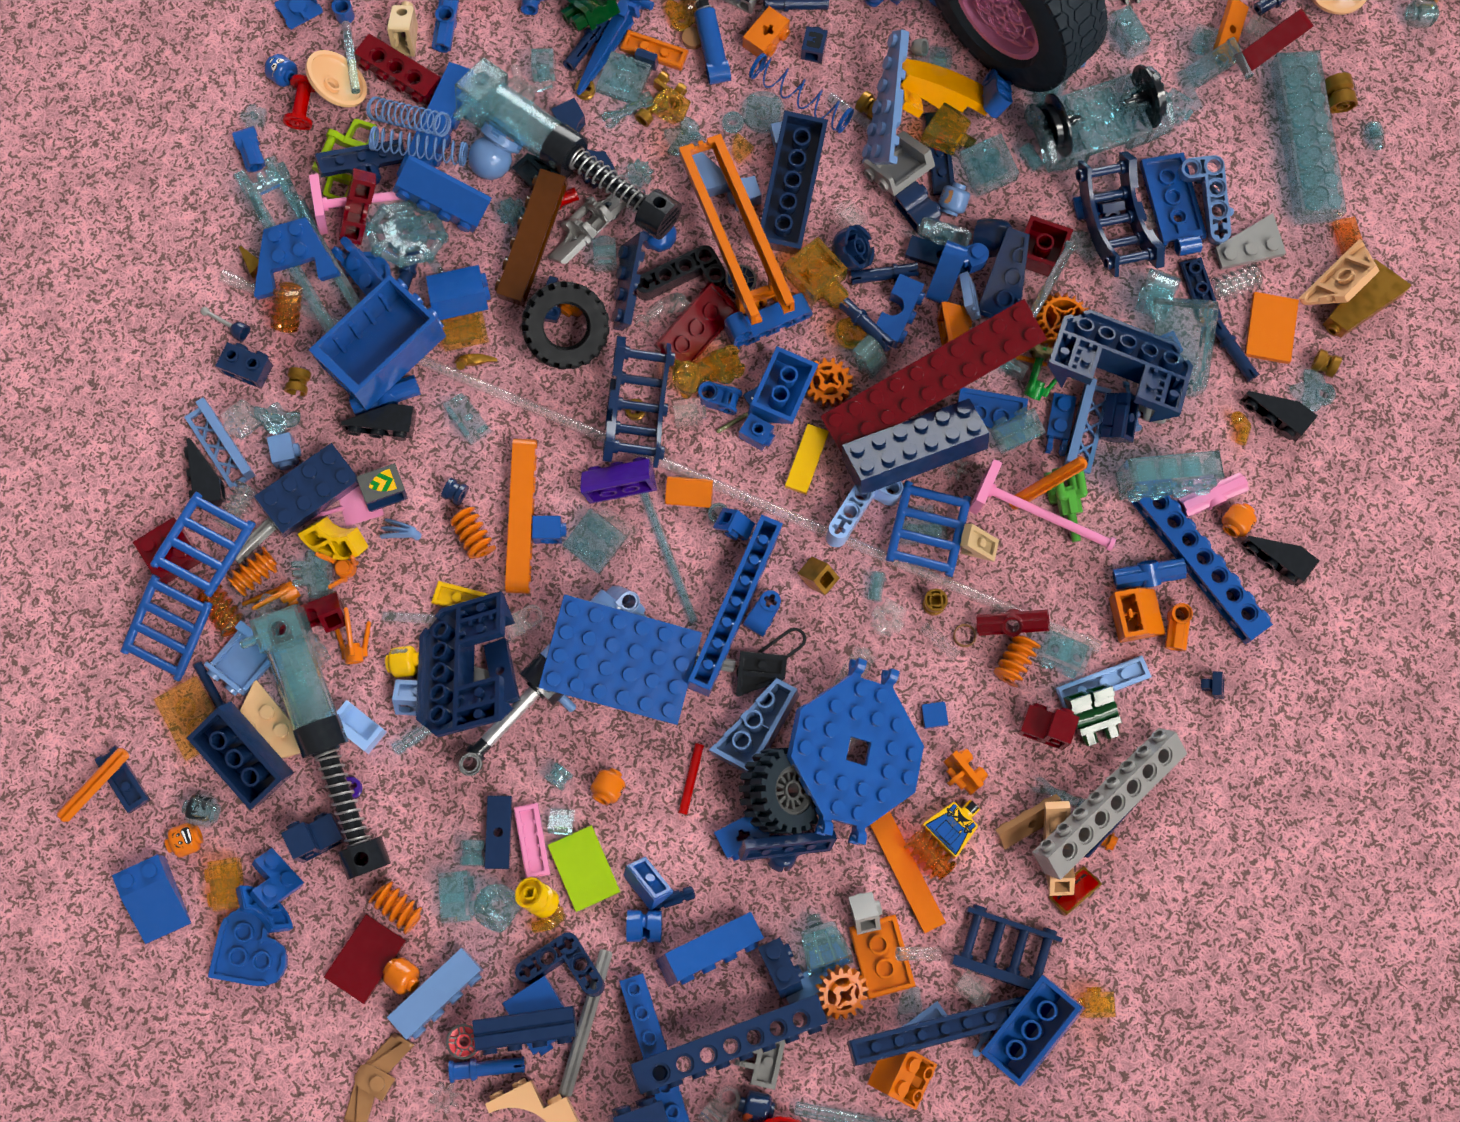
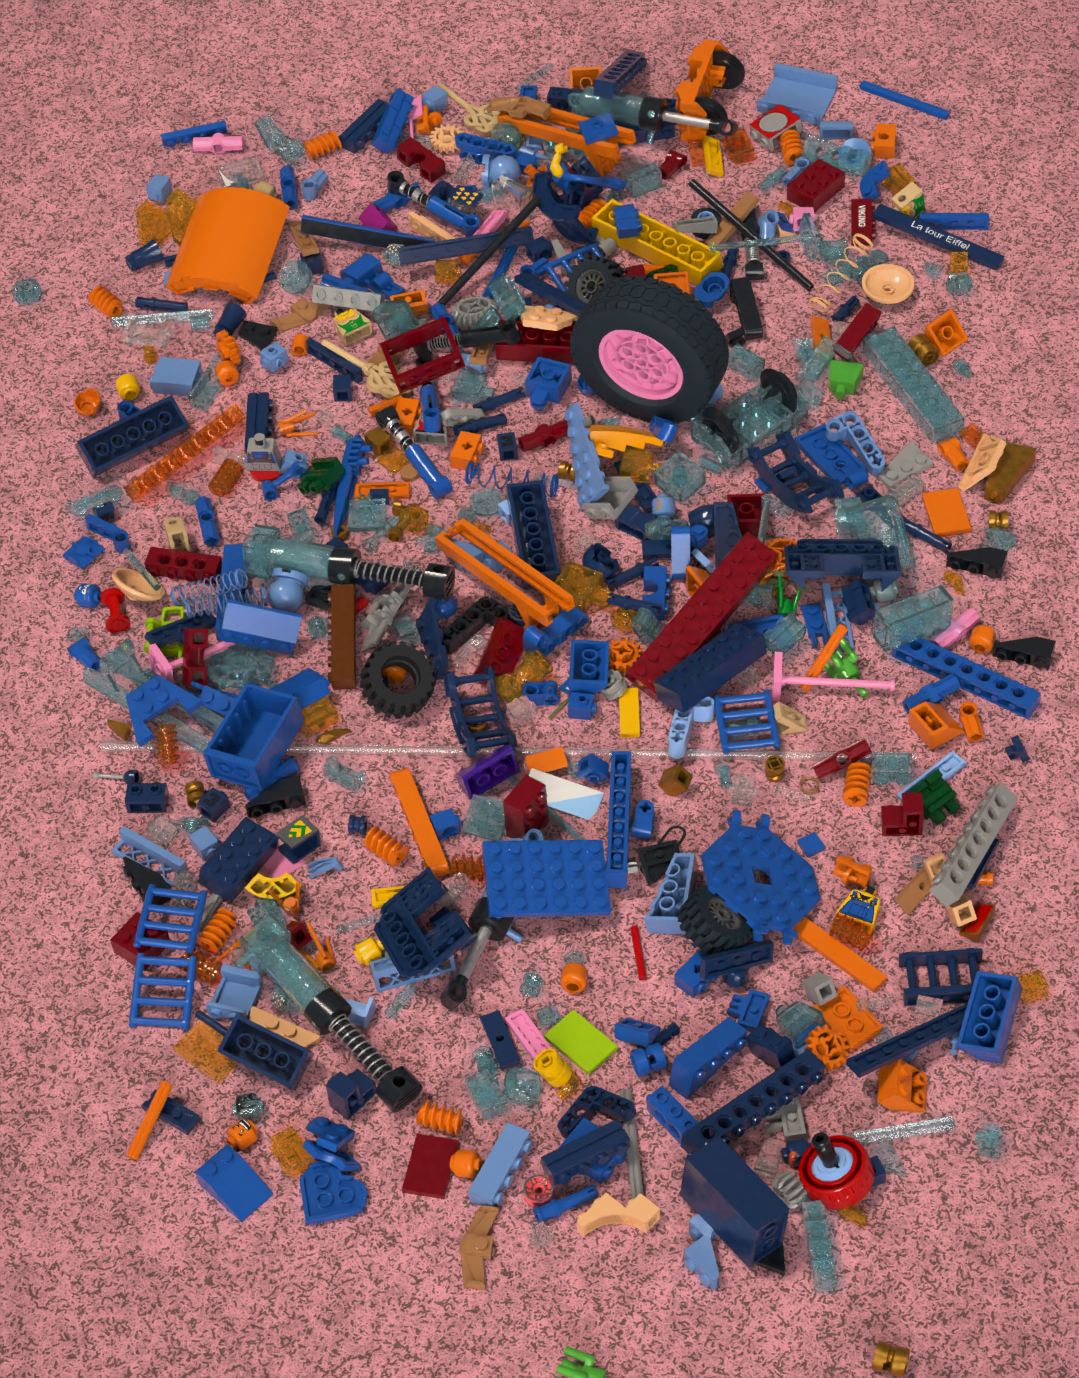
camera: 15 degrees left, 25 degrees down
(312, 403) = (213, 804): none -> dark blue brick
(546, 596) = (471, 868): none -> clear orange piece
(618, 759) = (574, 957): none -> clear light blue tile
(636, 557) = (526, 808): none -> dark red brick
(689, 540) = (569, 795): none -> sticker
(780, 904) = (749, 1009): none -> blue hinge
(805, 420) = (616, 685): none -> light grey wheel
(859, 46) = (543, 435): none -> dark red piece
(1233, 96) = (844, 378): none -> bright green torso
(1313, 248) = (952, 451): none -> orange piece
(1376, 79) = (946, 332): none -> orange slope

